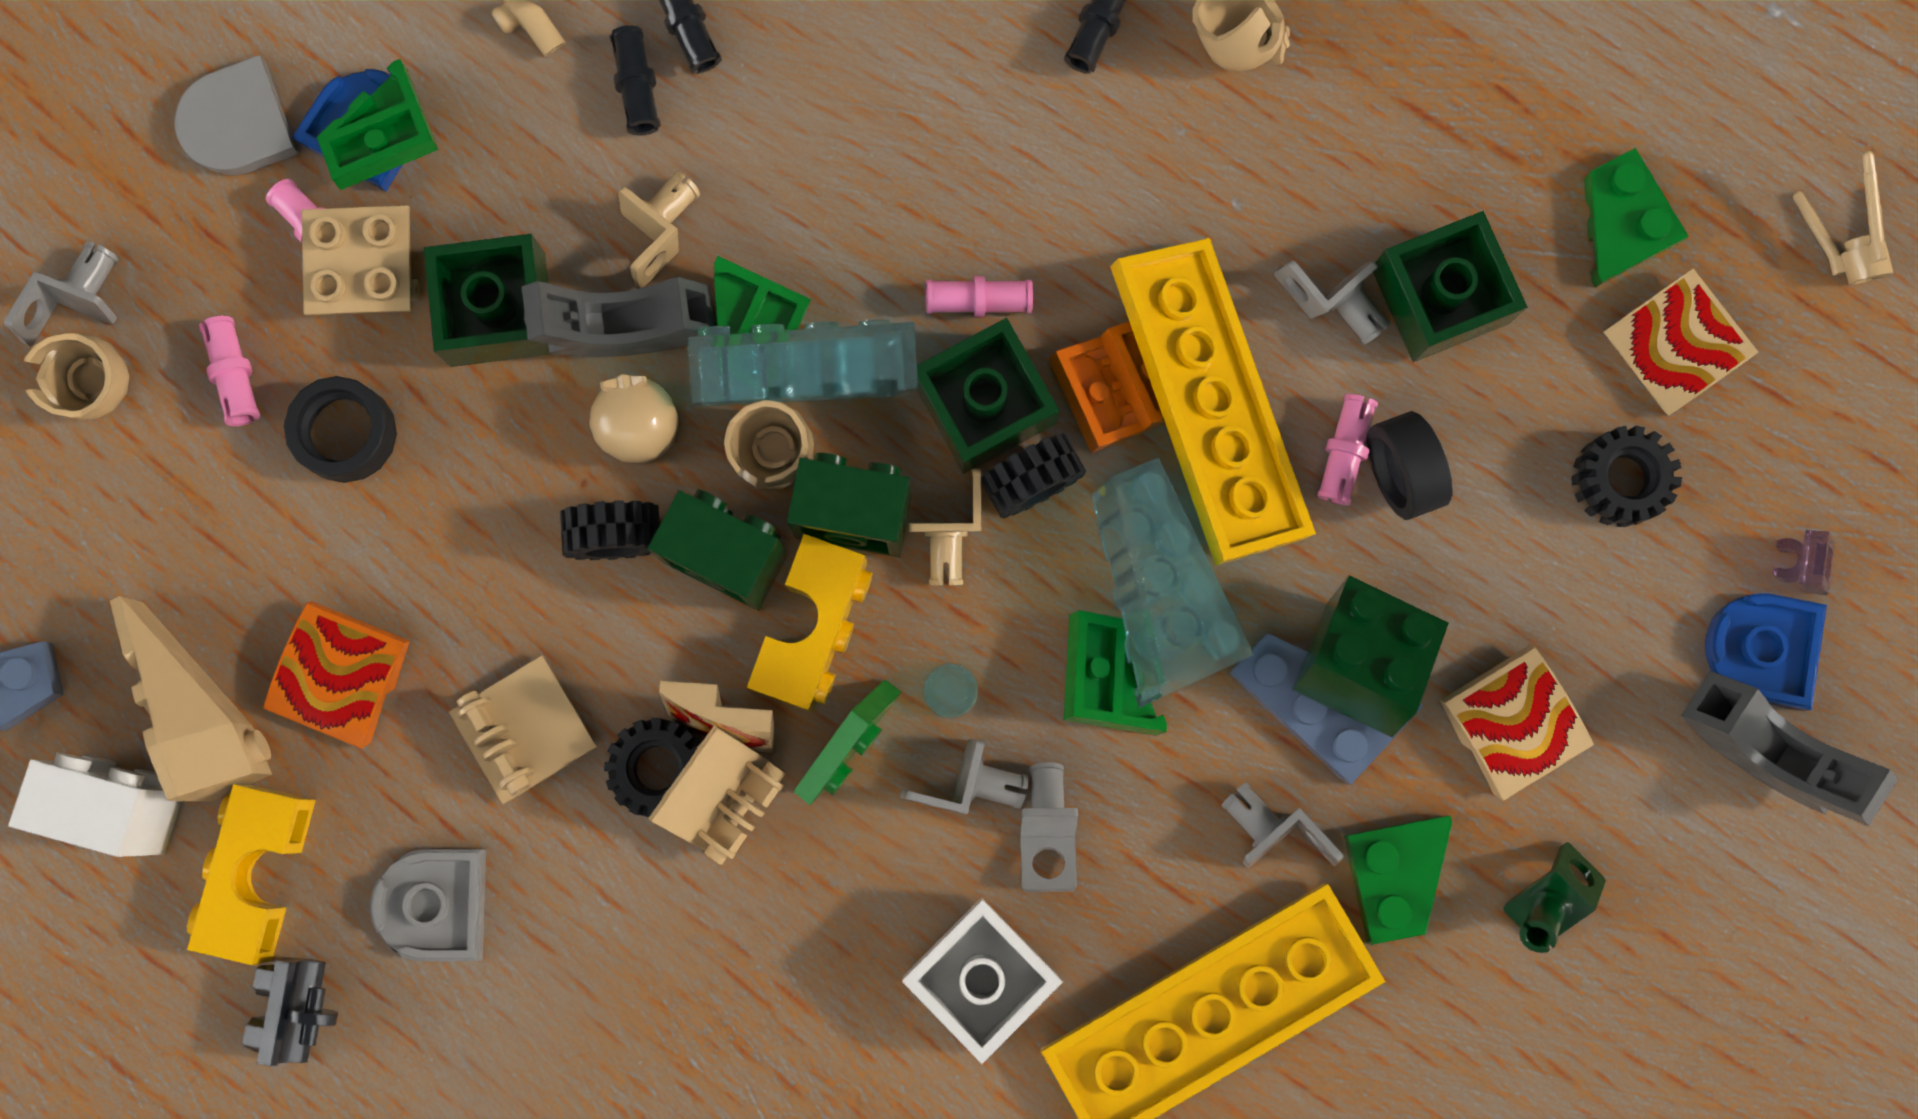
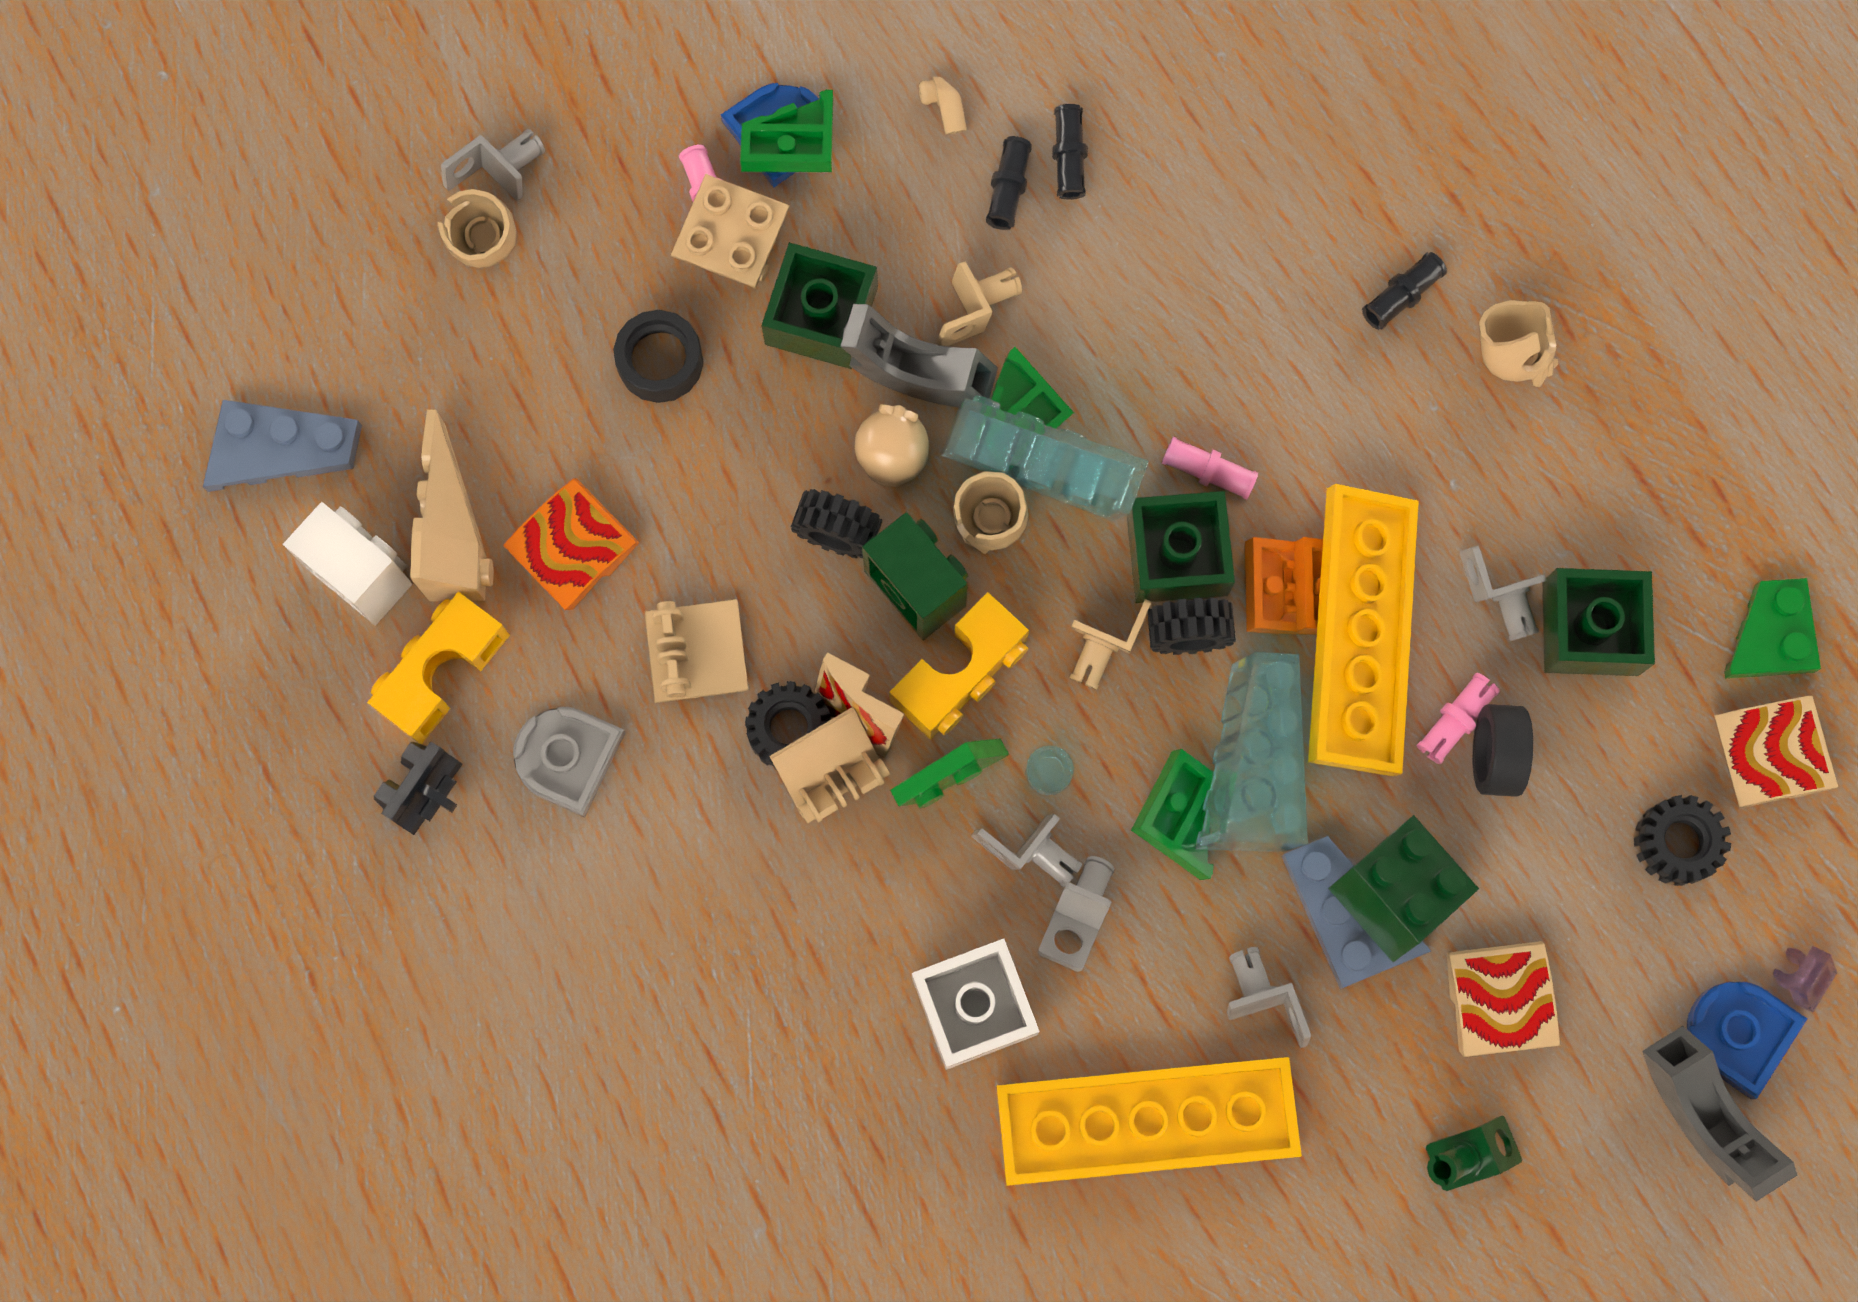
camera: 25 degrees right, 5 degrees down
(229, 371) = (592, 274): bright pink pin -> none
(234, 120) = (681, 83): light grey tile -> none
(850, 504) = (1036, 585): dark green brick -> none
(1398, 876) = (1349, 1079): green wing -> none

